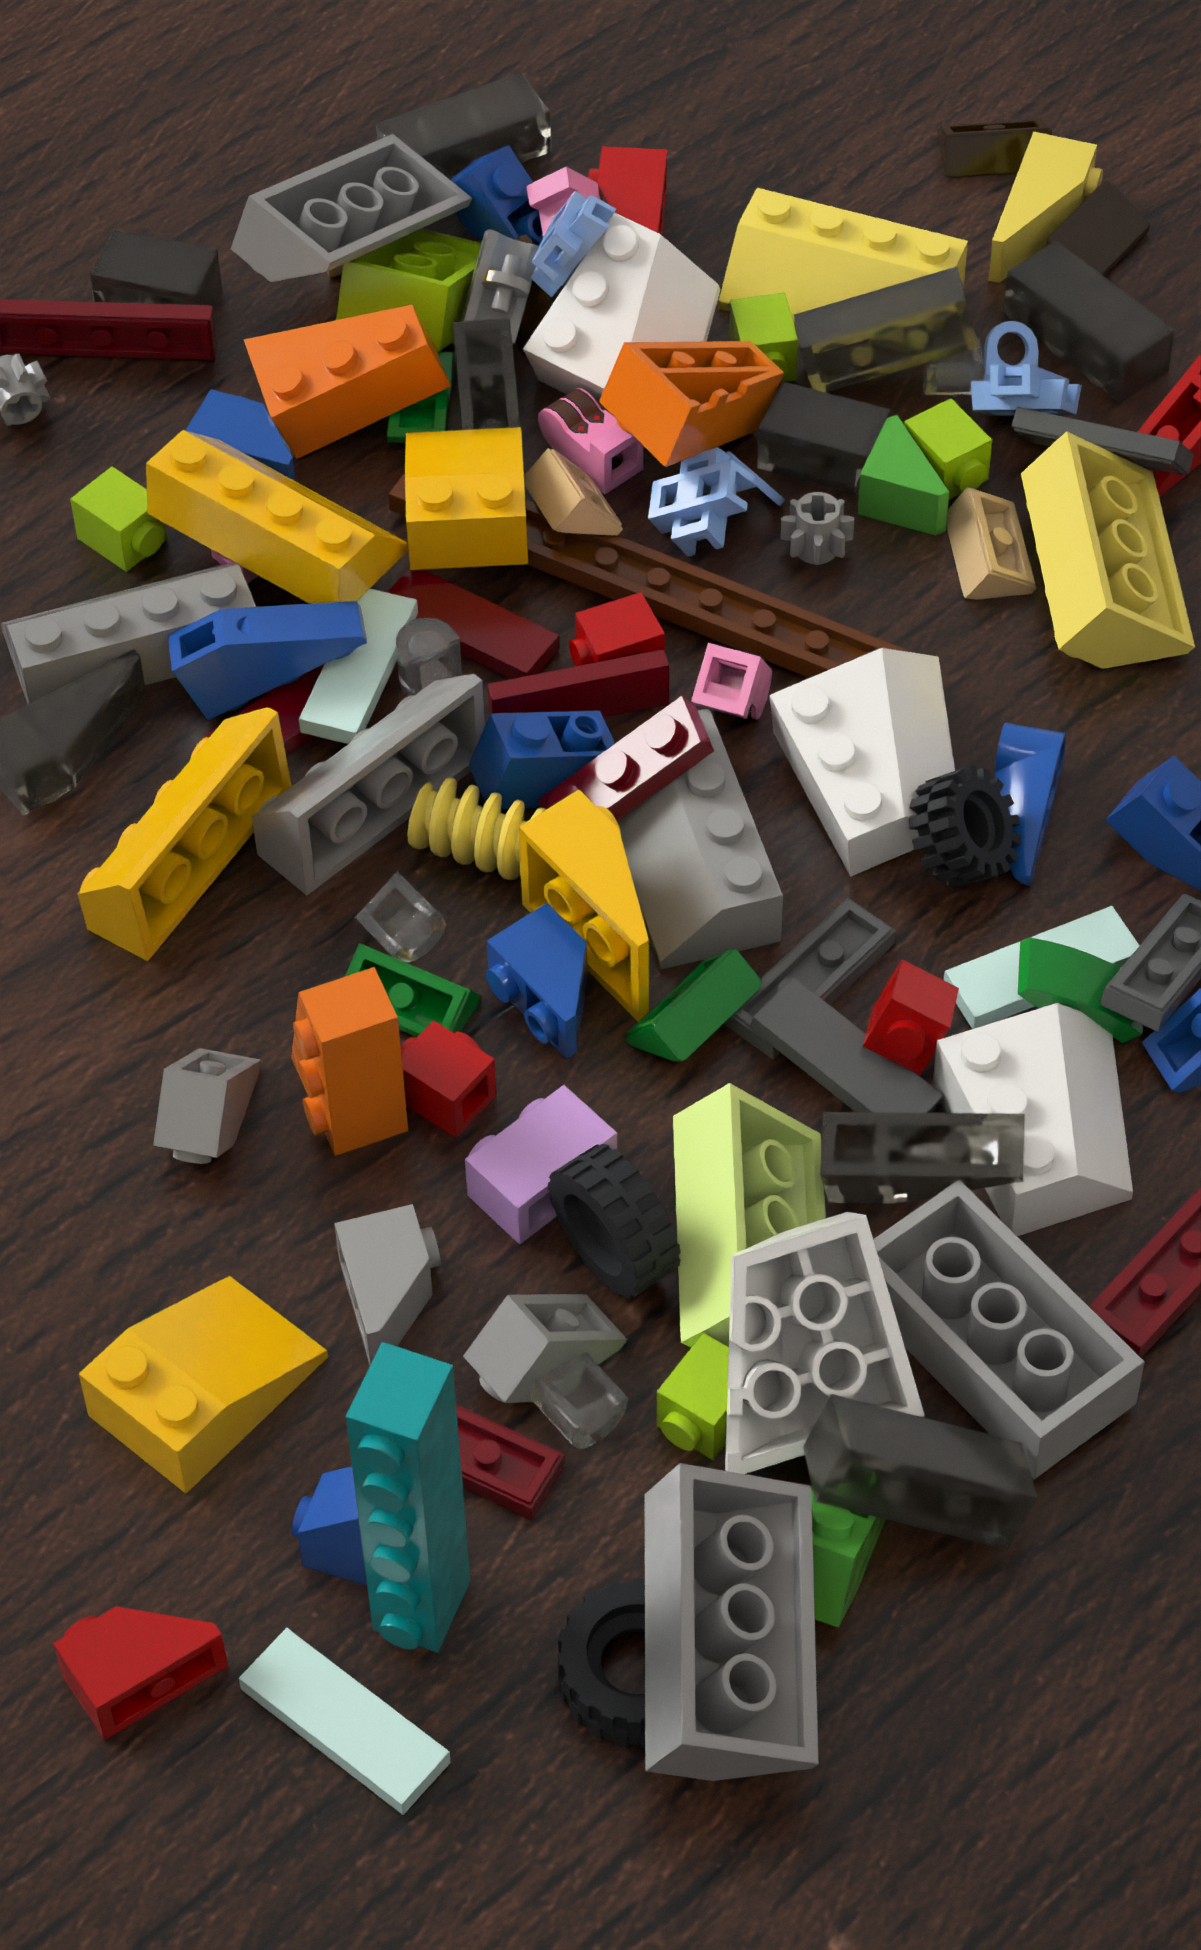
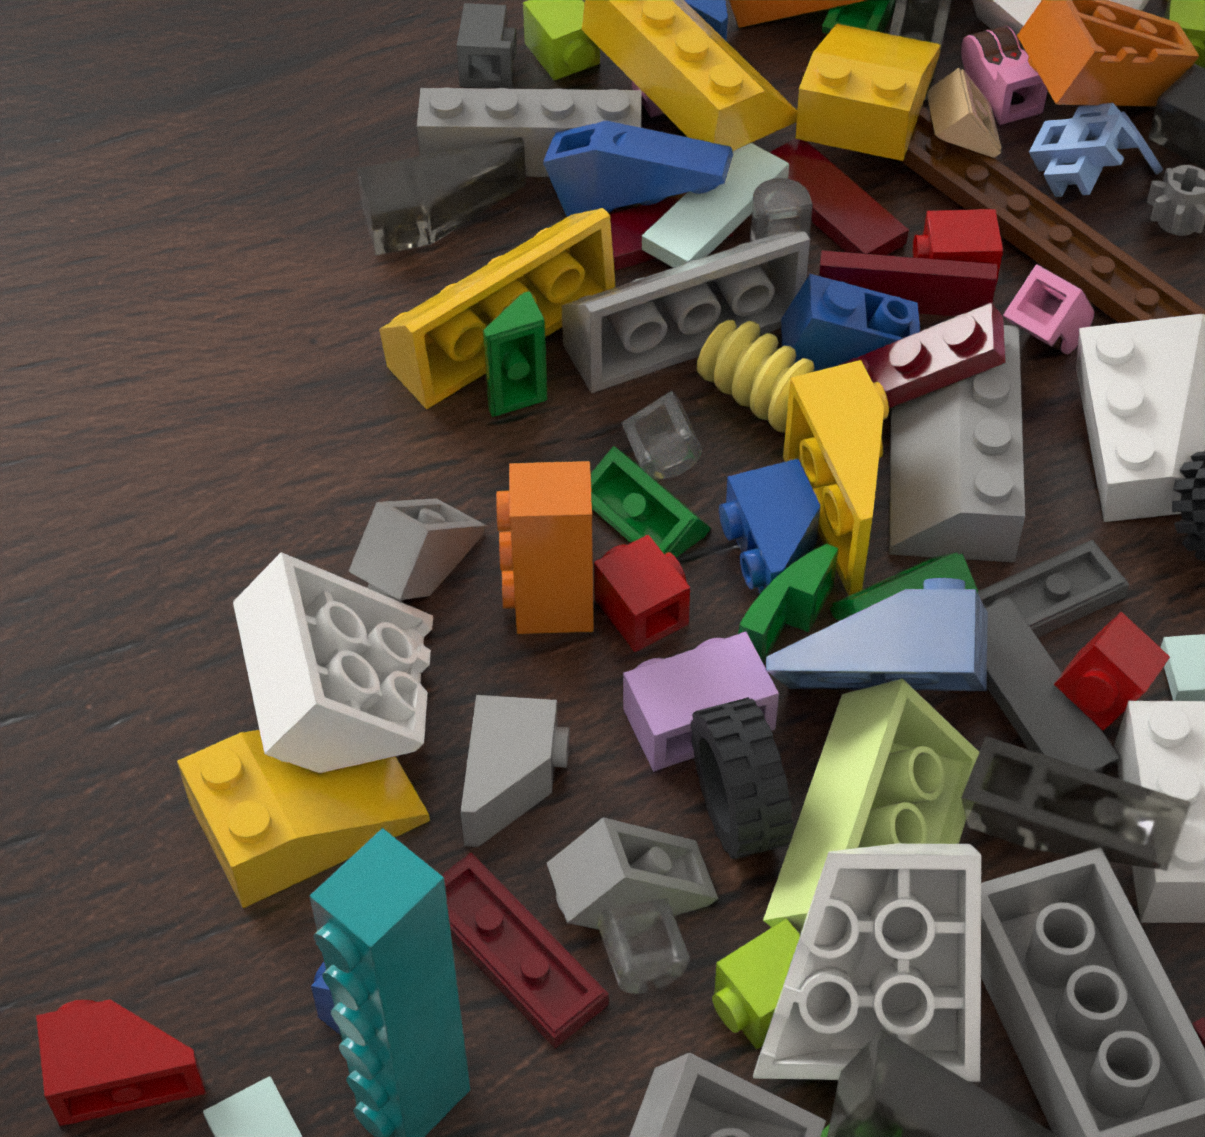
camera: 20 degrees right, 0 degrees up
(46, 557) = (486, 47): none -> dark grey brick
(186, 1240) = (332, 667): none -> white wedge
(231, 882) = (516, 357): none -> green slope
(590, 1038) = (791, 599): none -> green slope
(728, 1040) = (919, 635): none -> medium blue slope

